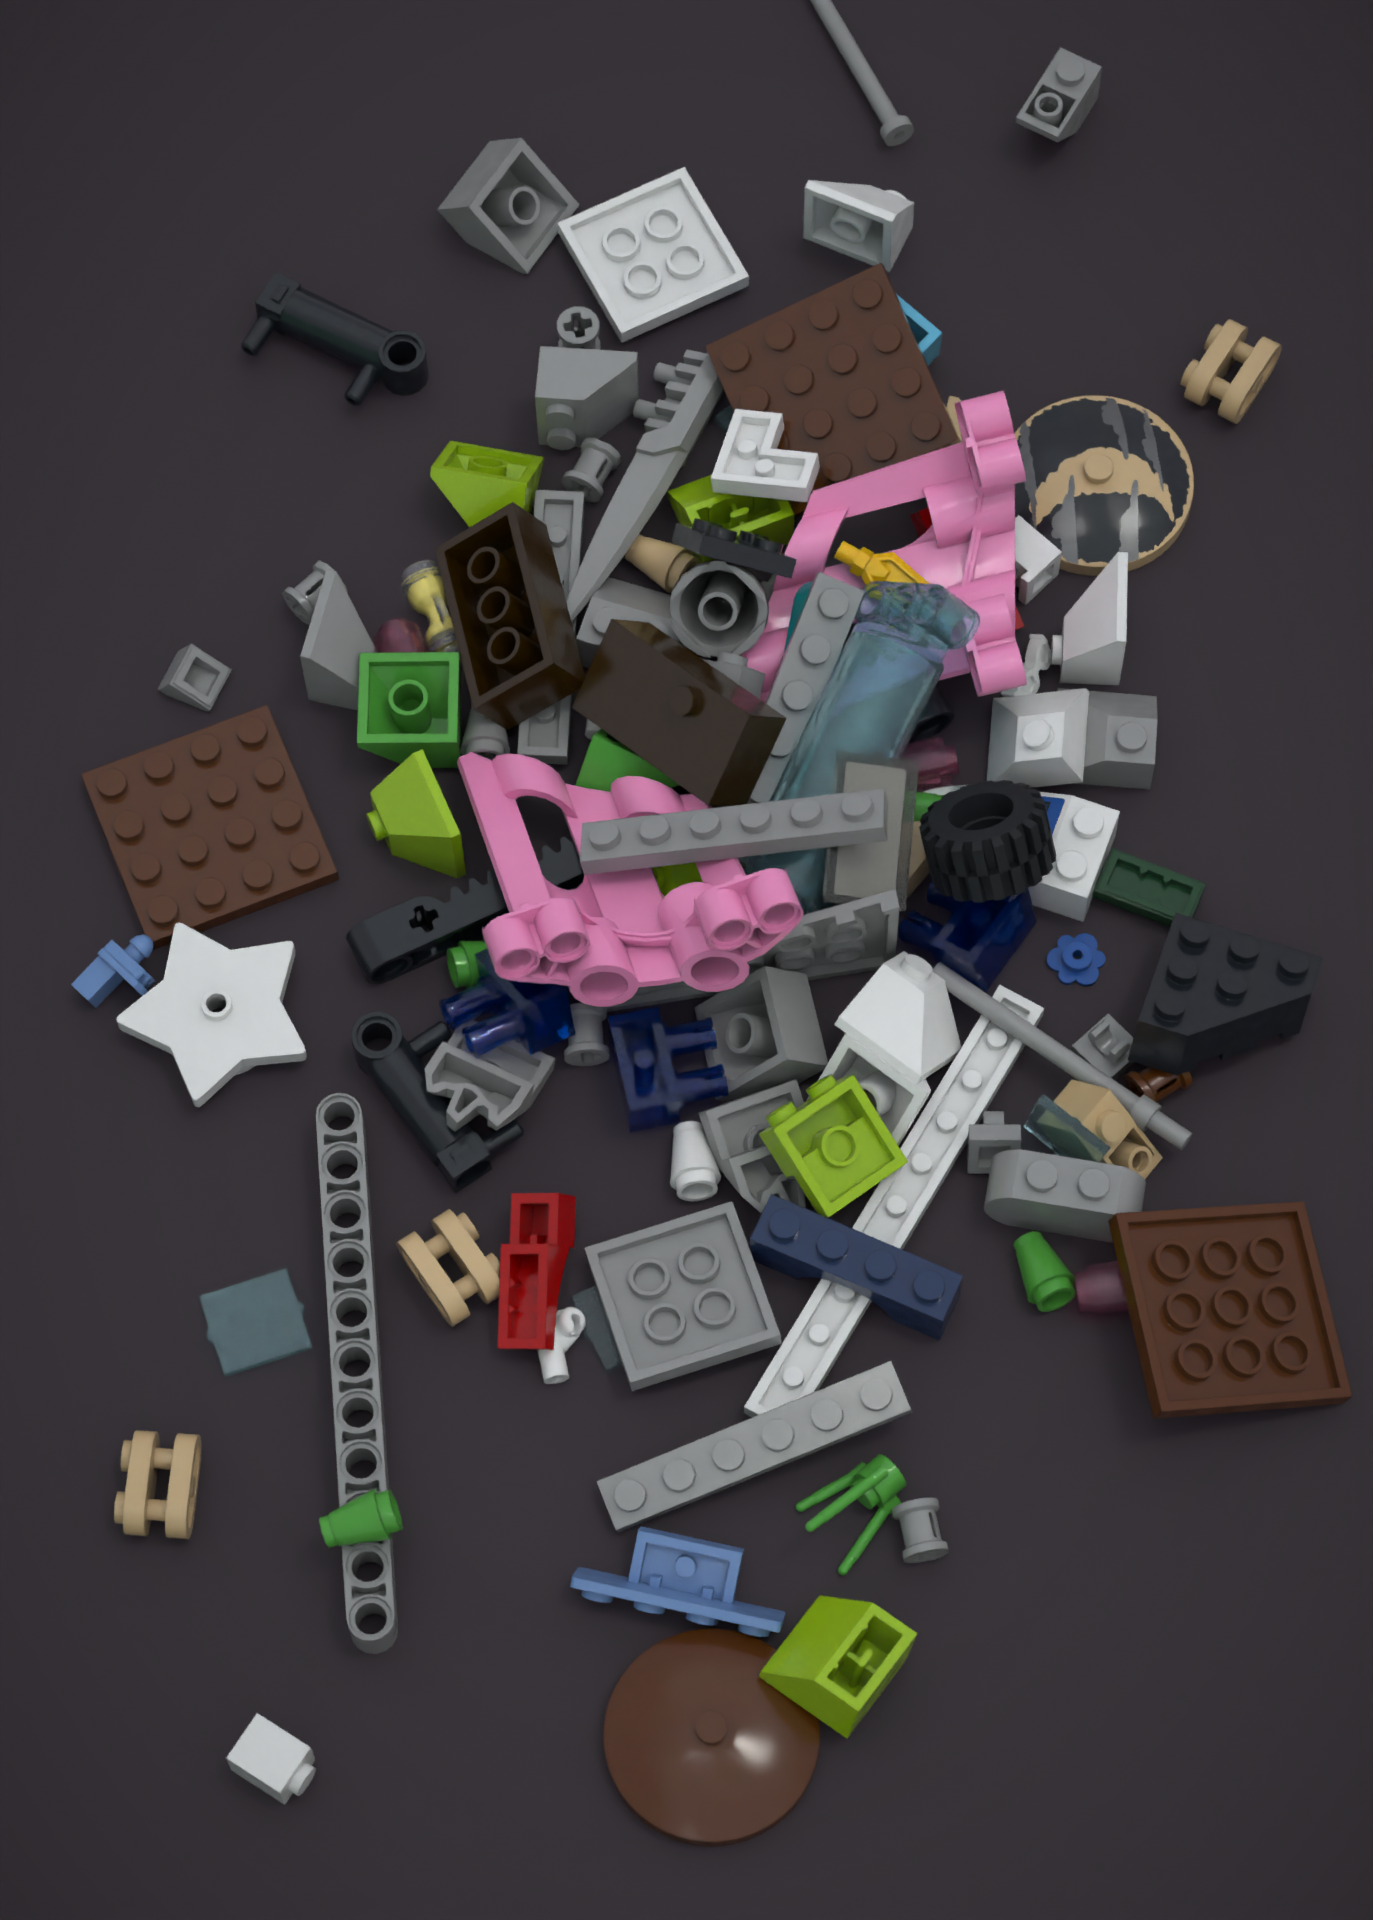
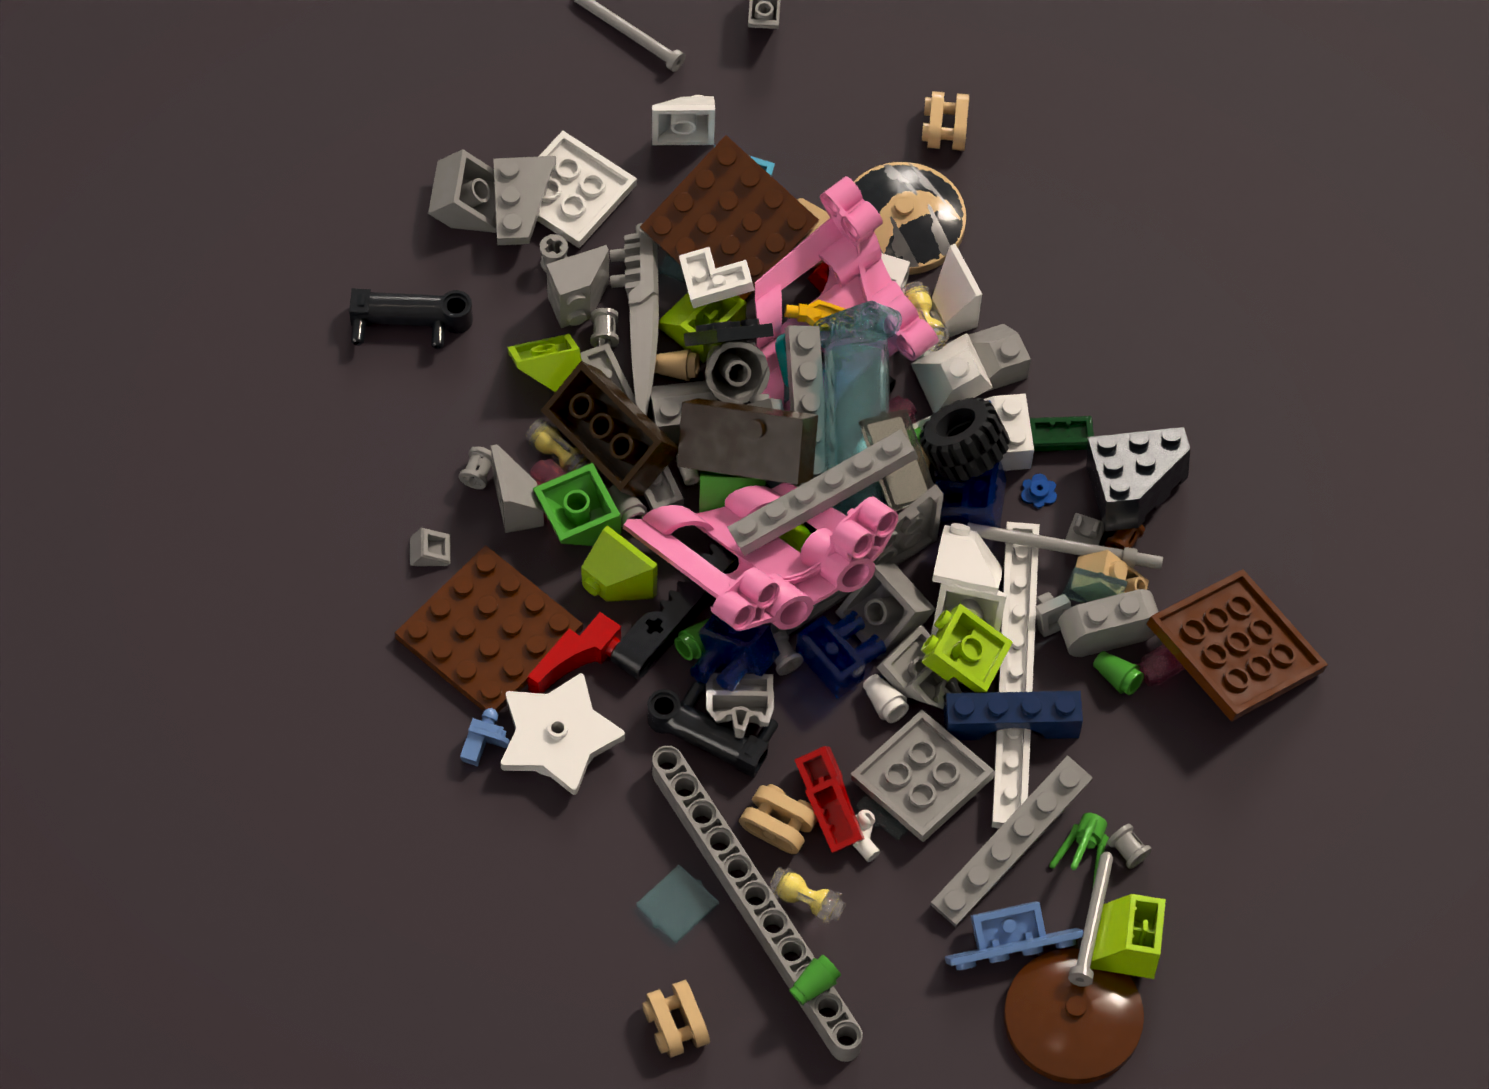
camera: 30 degrees left, 5 degrees down
(300, 907) = (575, 651): none -> red slope
(417, 1374) = (792, 888): none -> clear piece
(570, 233) = (519, 194): none -> light grey wing
(741, 1684) = (1081, 973): none -> light grey bar
(1039, 616) = (921, 299): none -> clear piece

